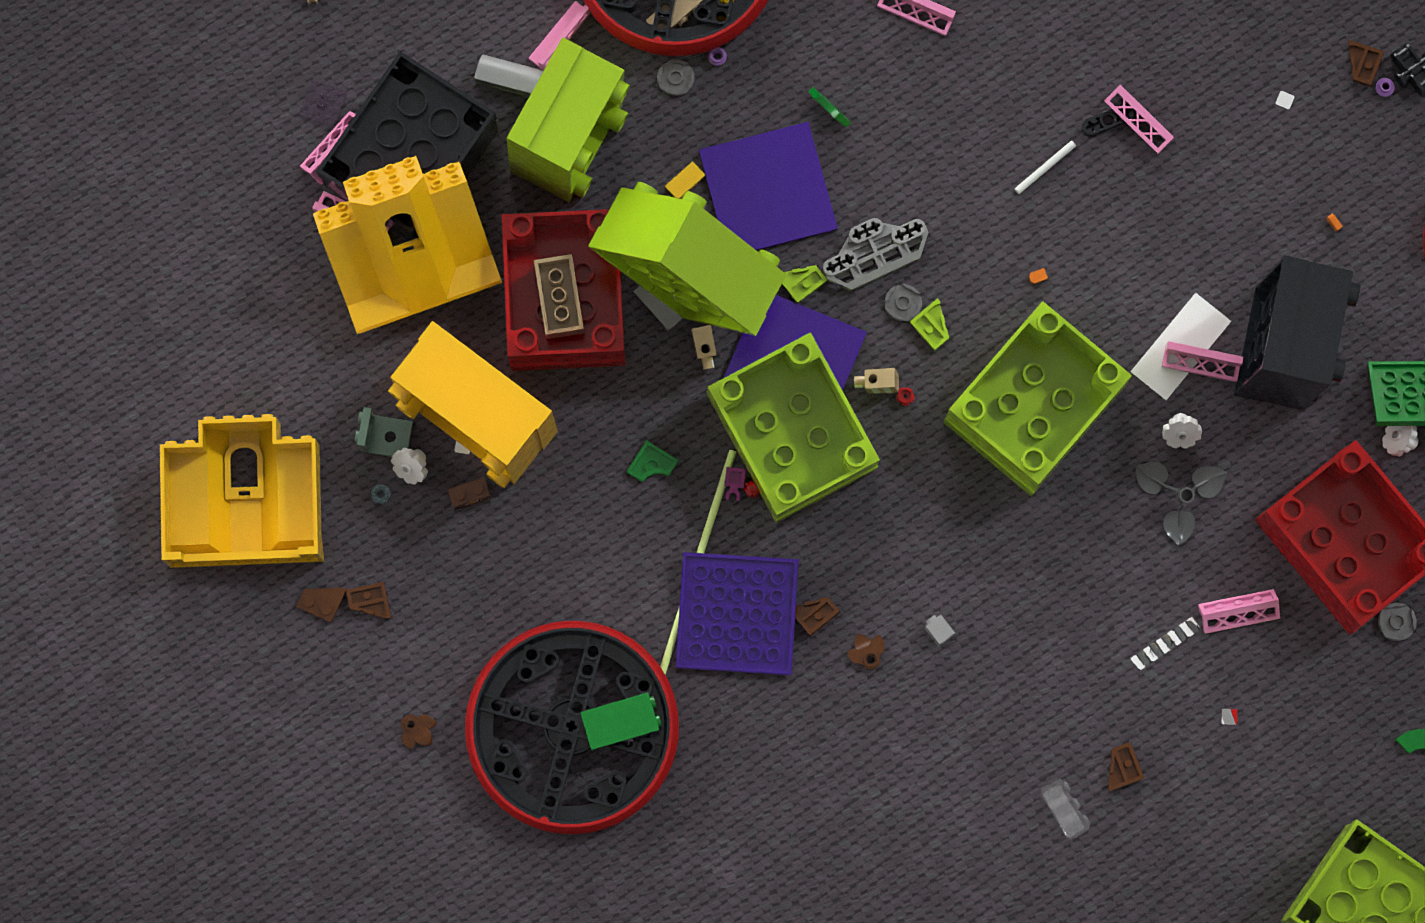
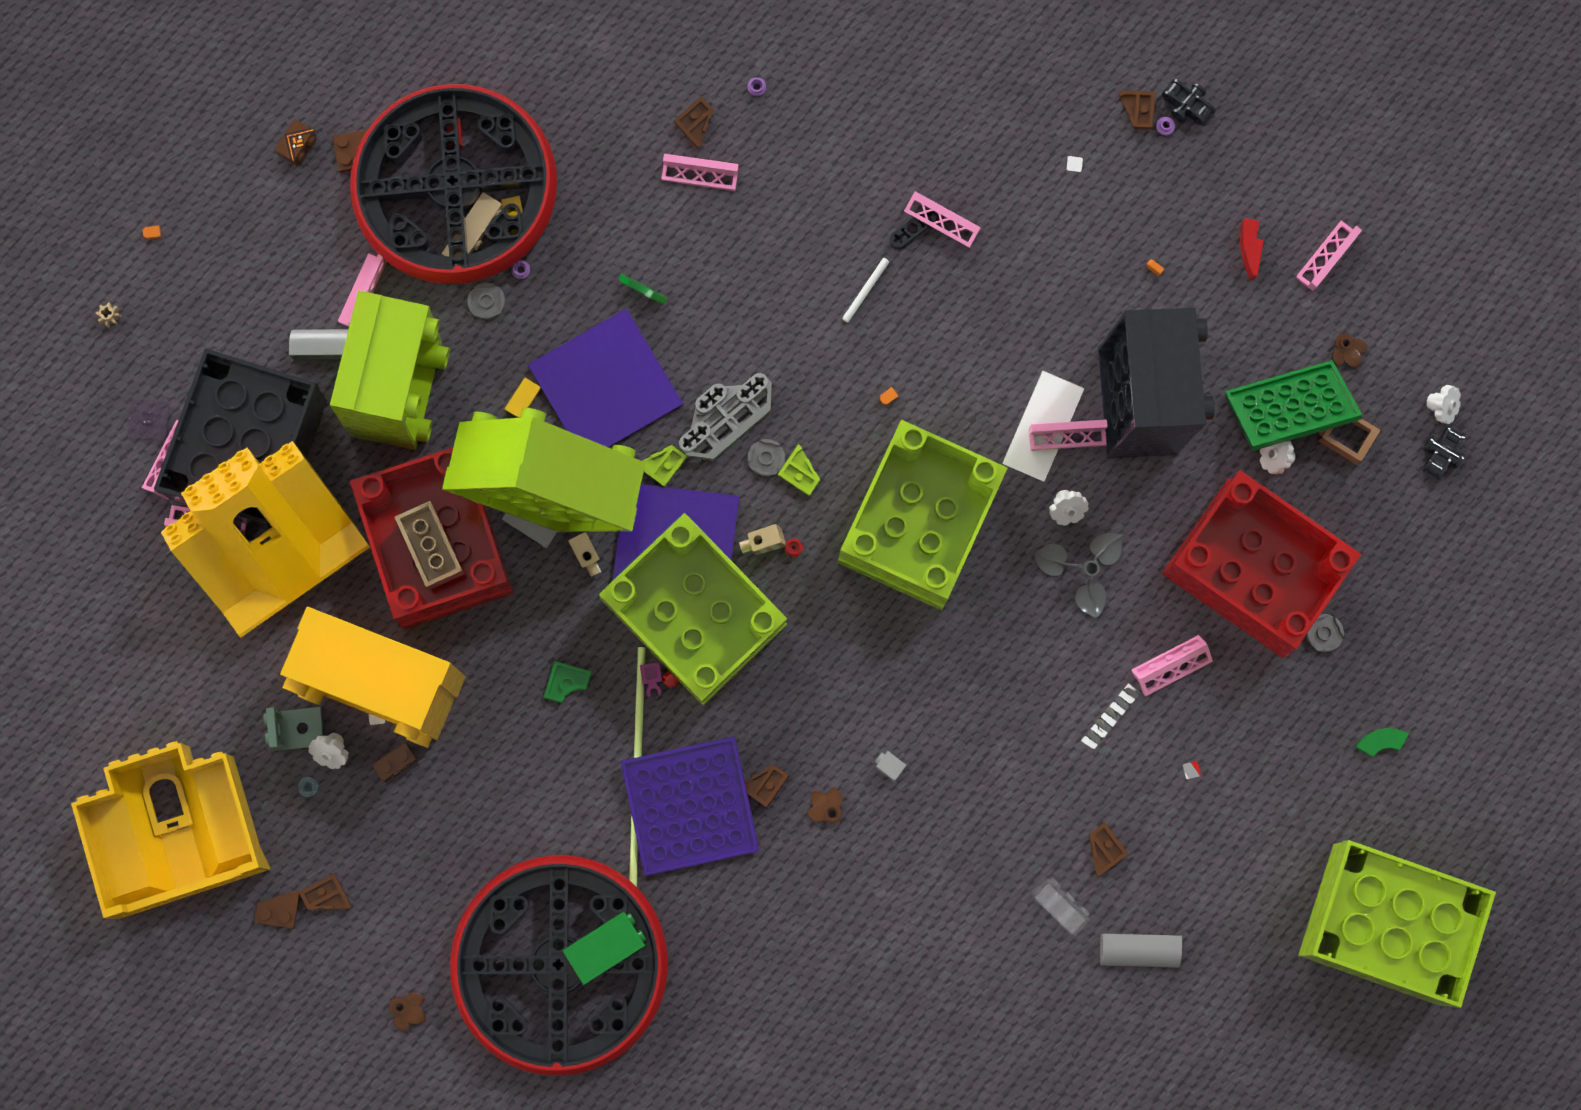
camera: 20 degrees left, 0 degrees up
(1130, 872) = (1140, 950): none -> light grey brick

